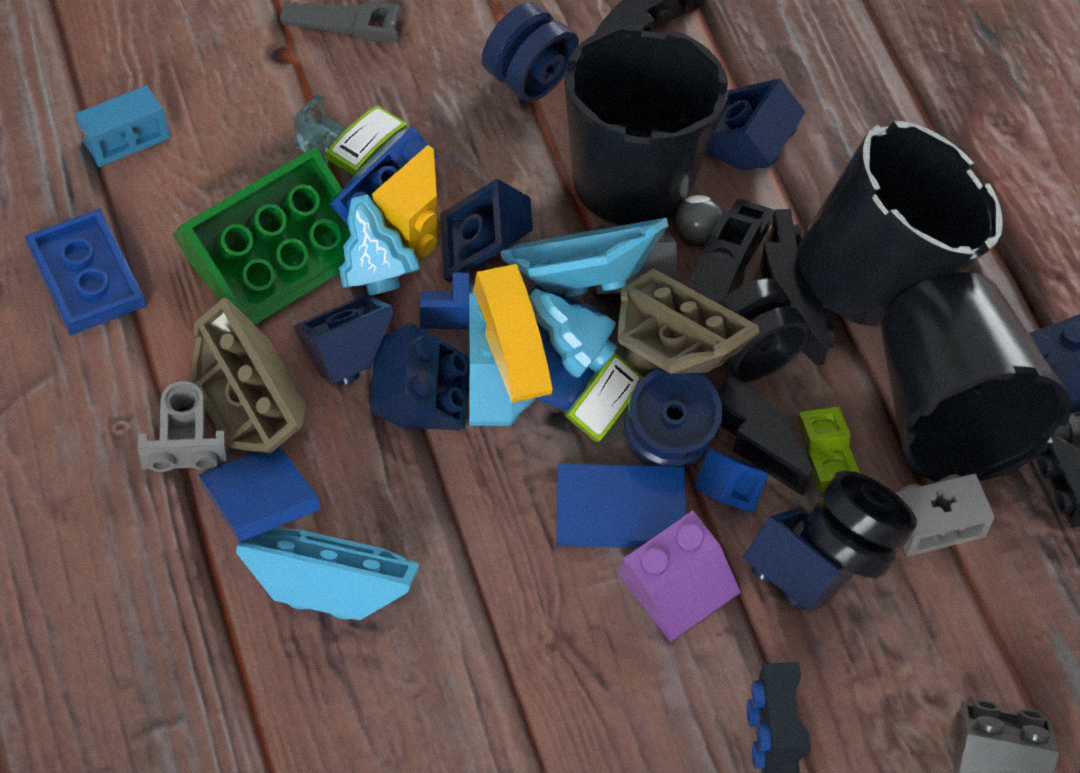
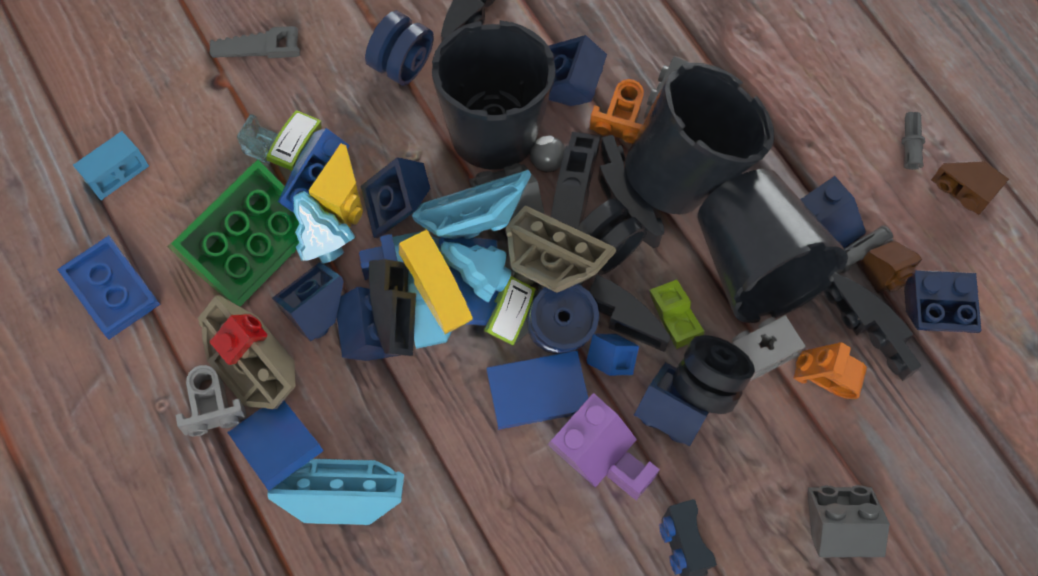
camera: 10 degrees left, 10 degrees up
(240, 352) = (237, 336): none -> red bracket
(451, 354) = (392, 306): none -> black slope
(724, 636) = (632, 475): none -> medium lavender panel
(808, 184) = (622, 113): none -> orange pin
(1026, 557) = (832, 370): none -> orange pin

